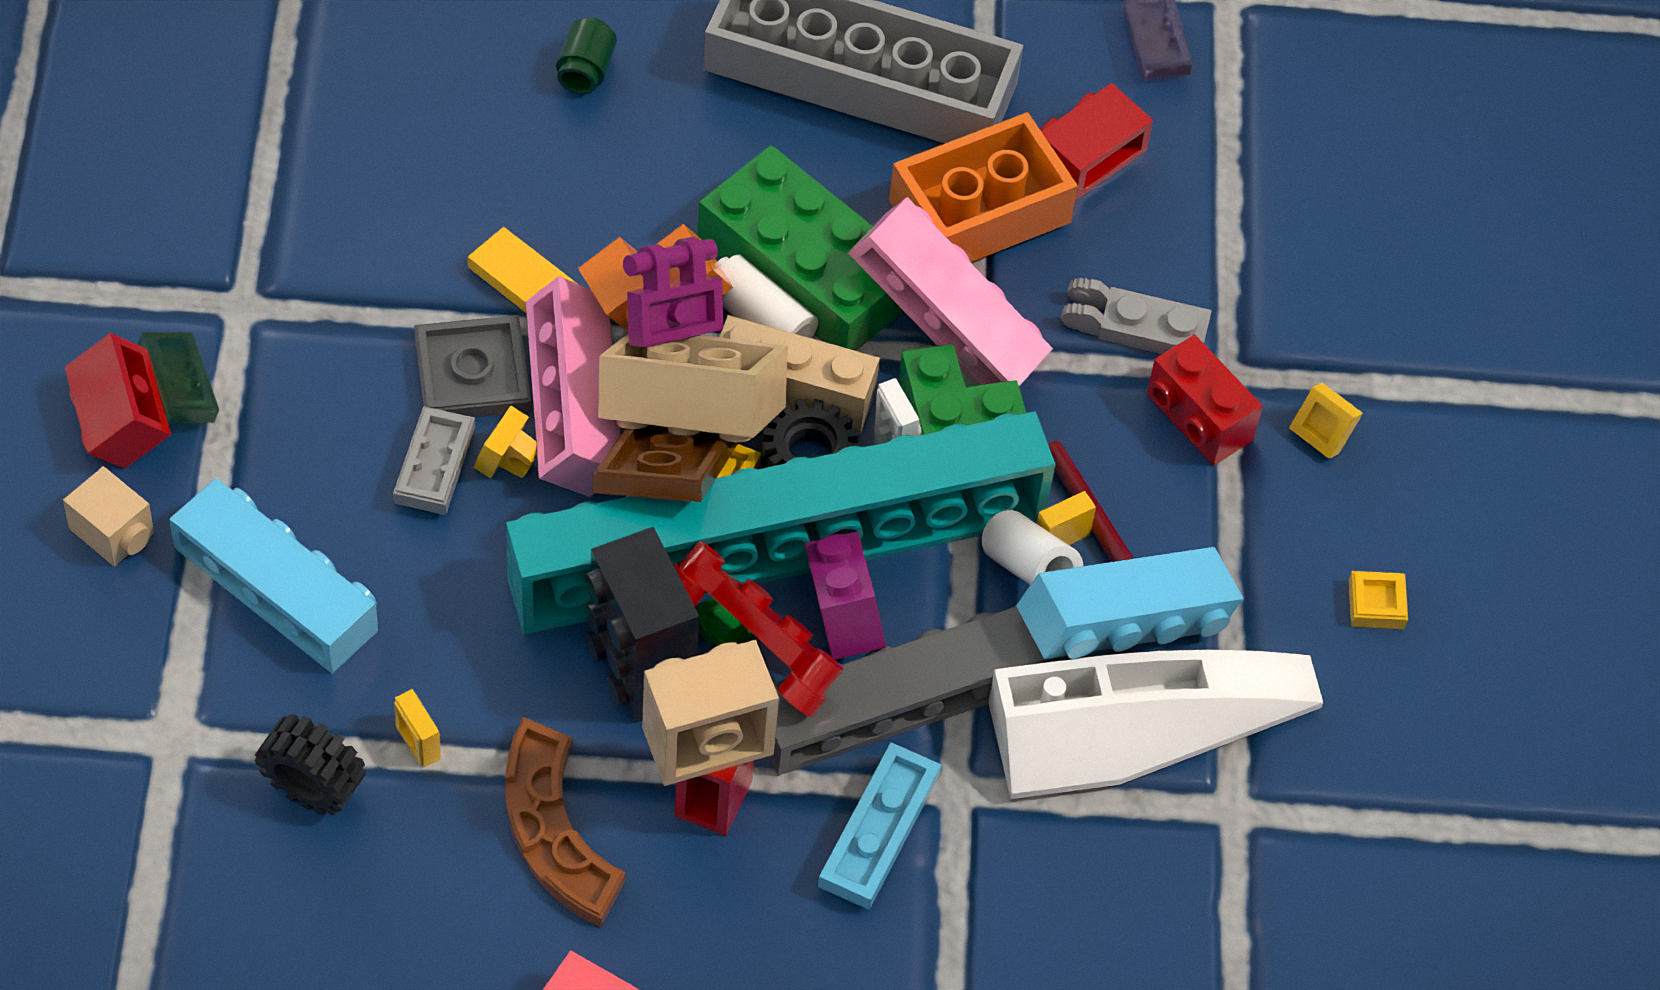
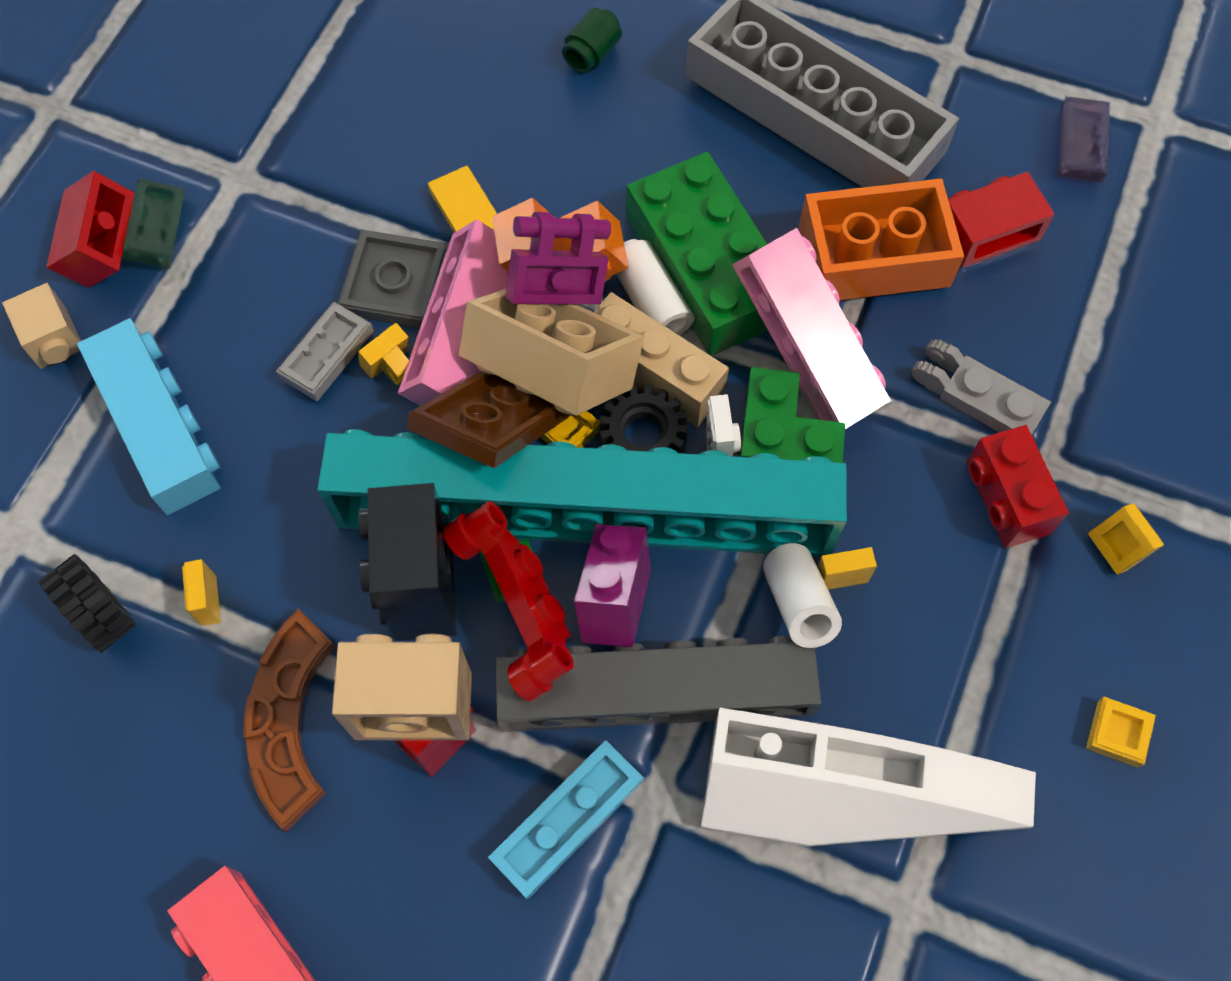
camera: 25 degrees right, 10 degrees up
(1075, 484) = (881, 579): dark red bar -> none
(1129, 603) = (873, 676): medium azure brick -> none

